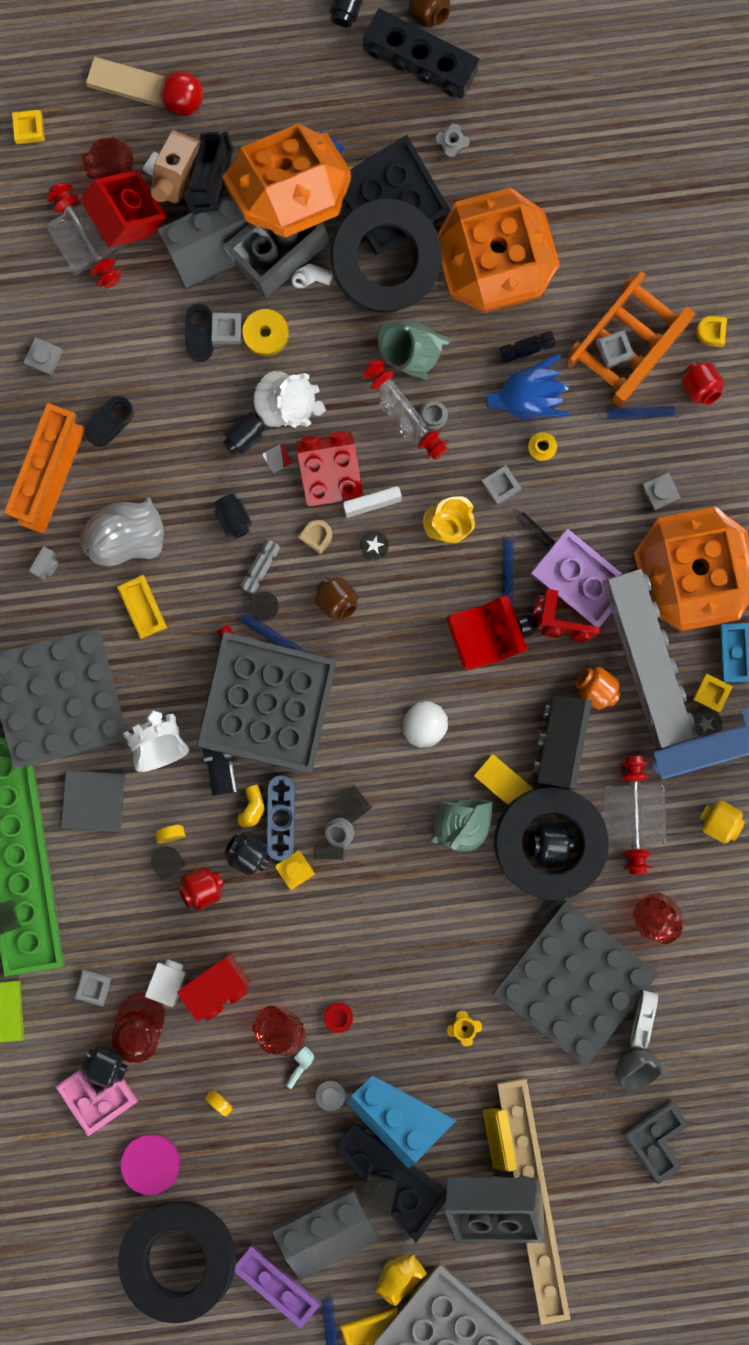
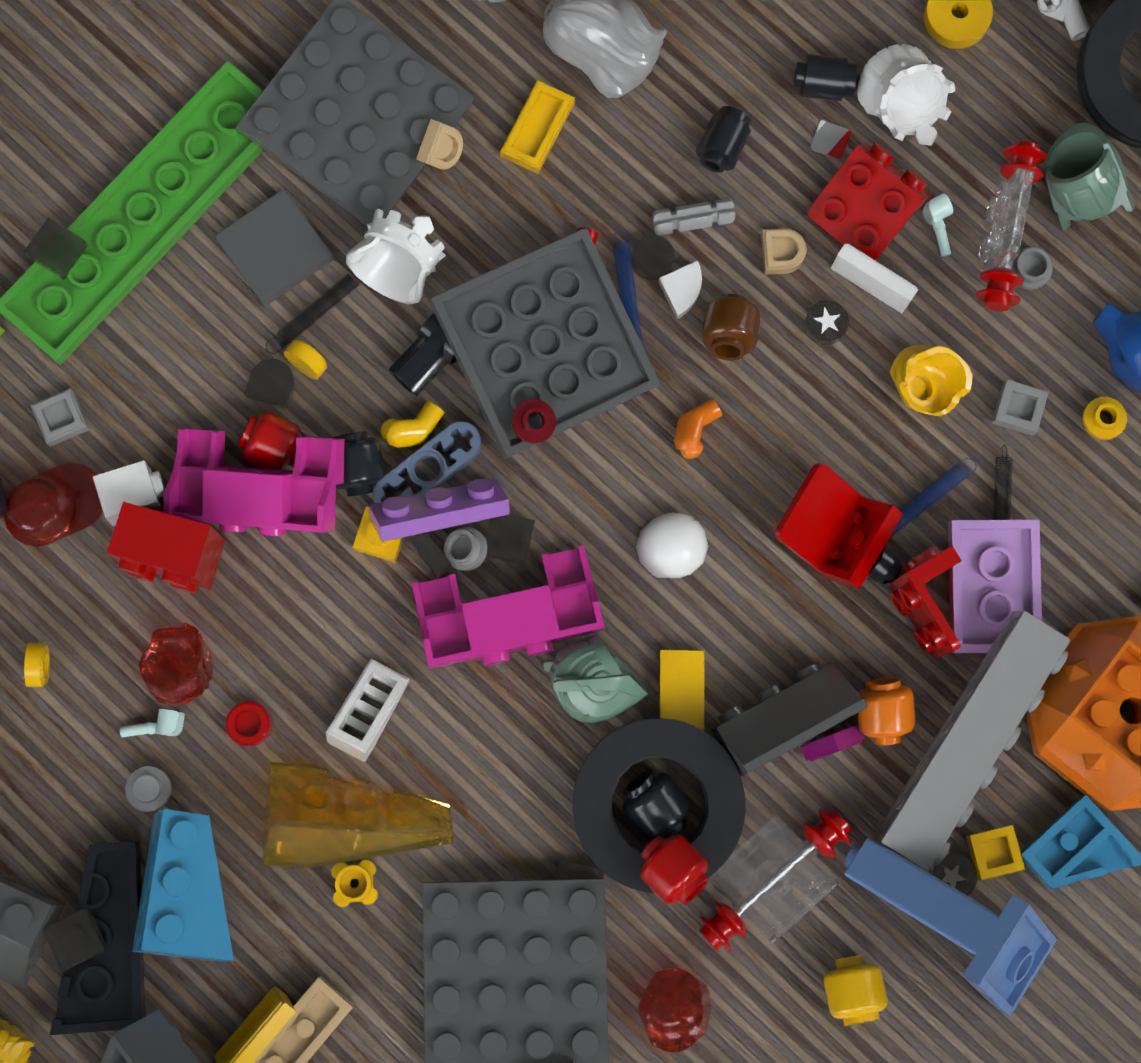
camera: 45 degrees right, 5 degrees down
(112, 669) = (440, 145): none -> tan tile
(147, 818) = (342, 284): none -> black piece
(223, 921) = (255, 497): none -> dark pink bracket
(293, 604) = (682, 288): none -> white tile
(296, 746) = (521, 426): none -> dark red plate
(309, 830) = (439, 509): none -> medium lavender plate
(362, 438) = (934, 213): none -> light aqua hand
(371, 663) = (690, 428): none -> orange arm
(391, 974) = (350, 744): none -> white slope
(399, 840) = (512, 621): none -> dark pink bracket
(423, 1015) = (332, 821): none -> clear yellow wedge
(591, 863) = (674, 869): none -> red head
(593, 727) = (832, 743): none -> magenta tile

